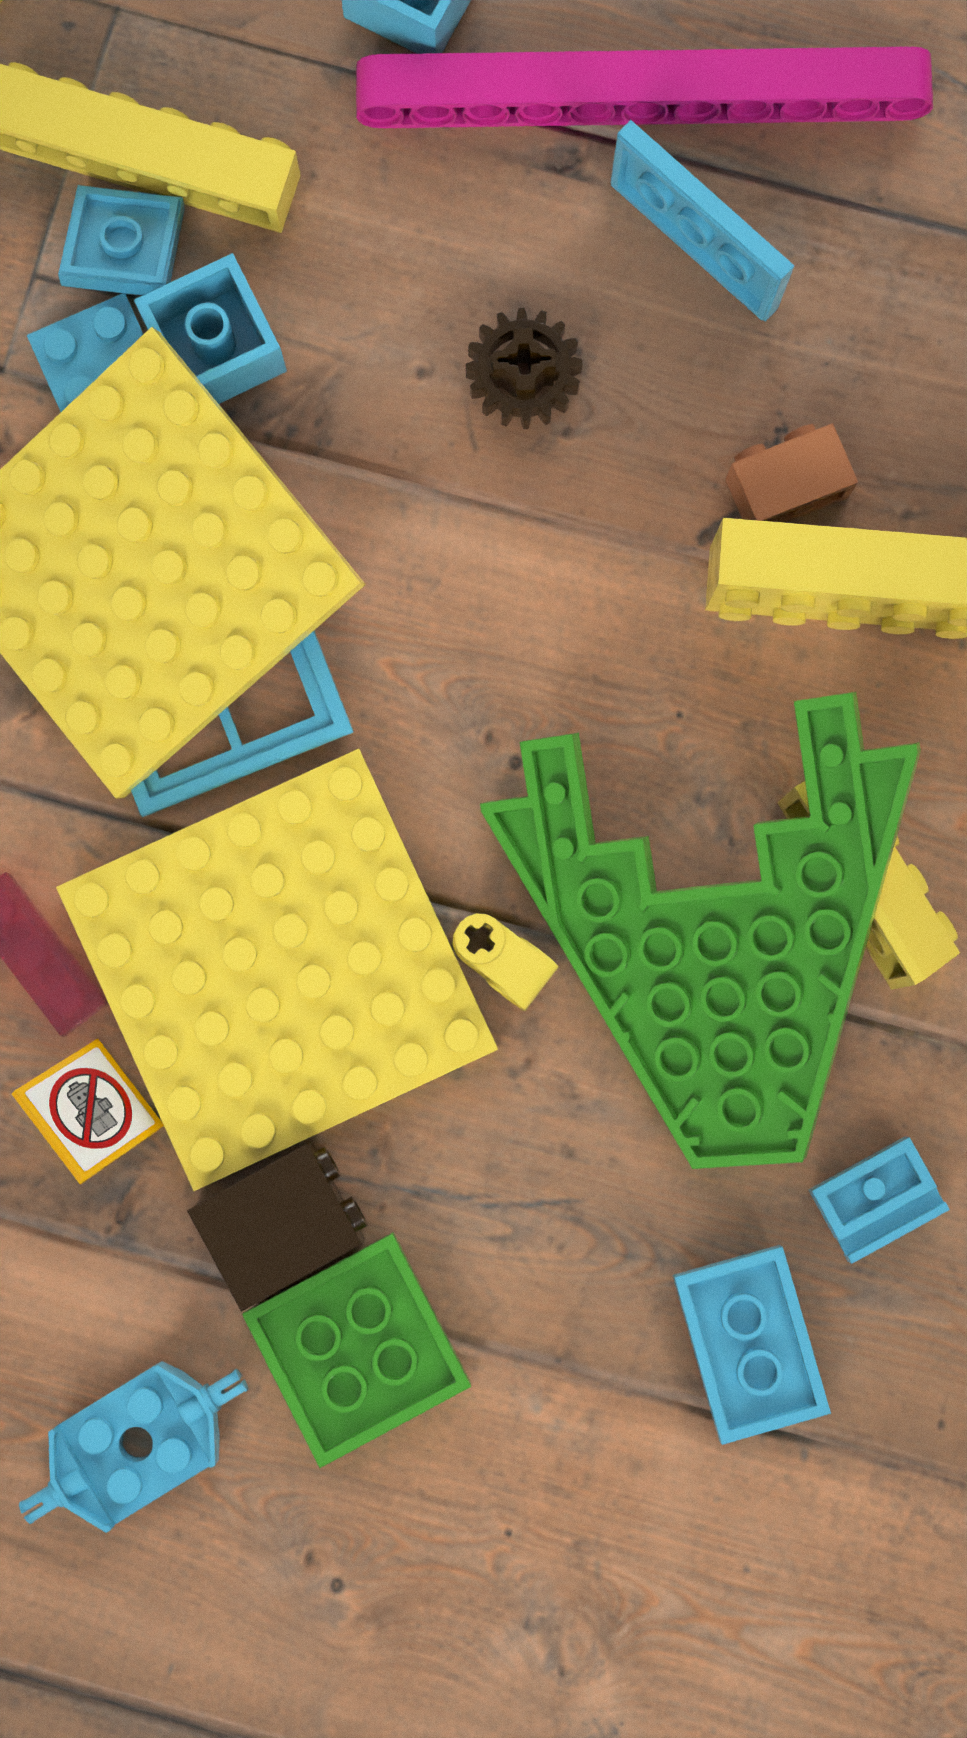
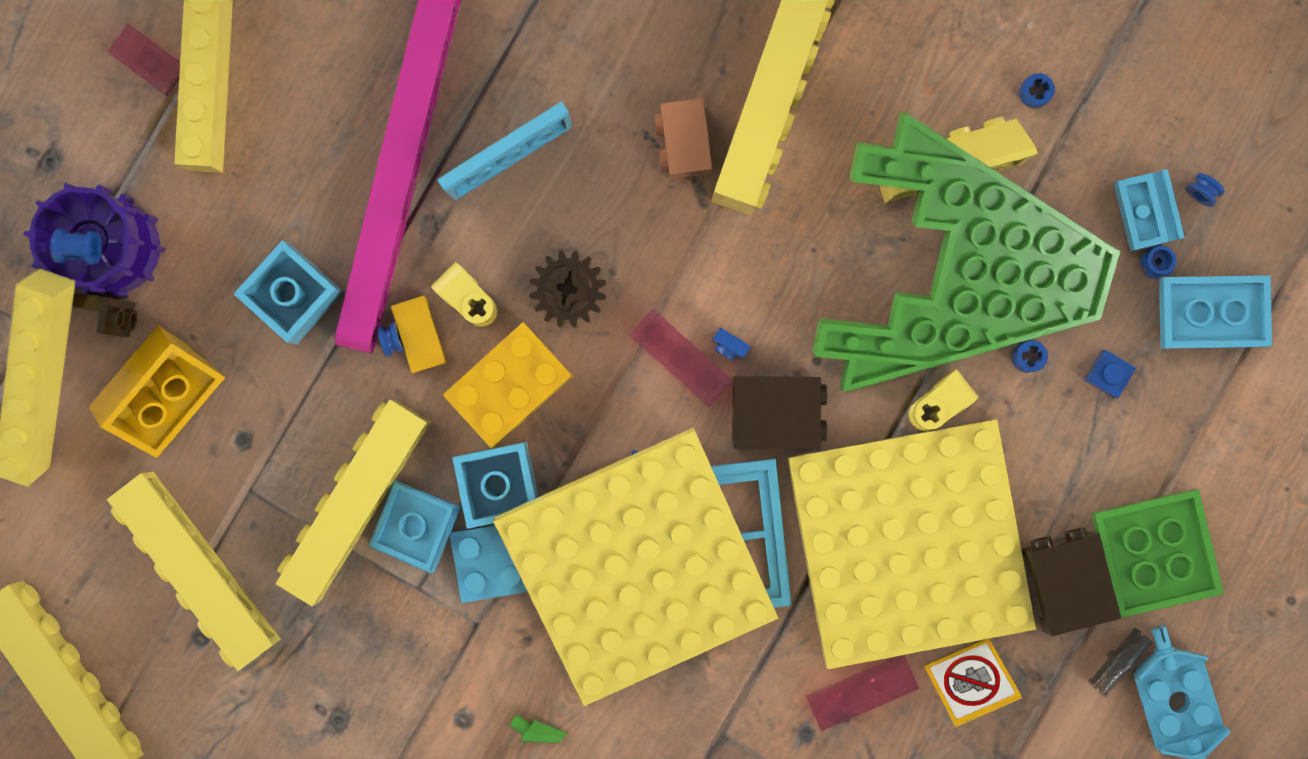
camera: 75 degrees left, 5 degrees up
(175, 1334) = (1120, 662): none -> clear smoke pin
(361, 317) = (508, 385): none -> yellow brick
(384, 139) = (390, 339): none -> blue bush
(402, 180) = (419, 334): none -> yellow tile
(423, 716) = (778, 412): none -> dark brown panel
(466, 556) = (680, 357): none -> clear pink plate
(475, 229) = (462, 292): none -> light yellow piece
(503, 621) = (729, 345): none -> blue plate
(597, 1090) = (1024, 347): none -> blue bush
(612, 1207) = (1110, 374): none -> blue plate
(789, 1236) = (1167, 258): none -> blue plate
(934, 1278) = (1205, 189): none -> blue bush

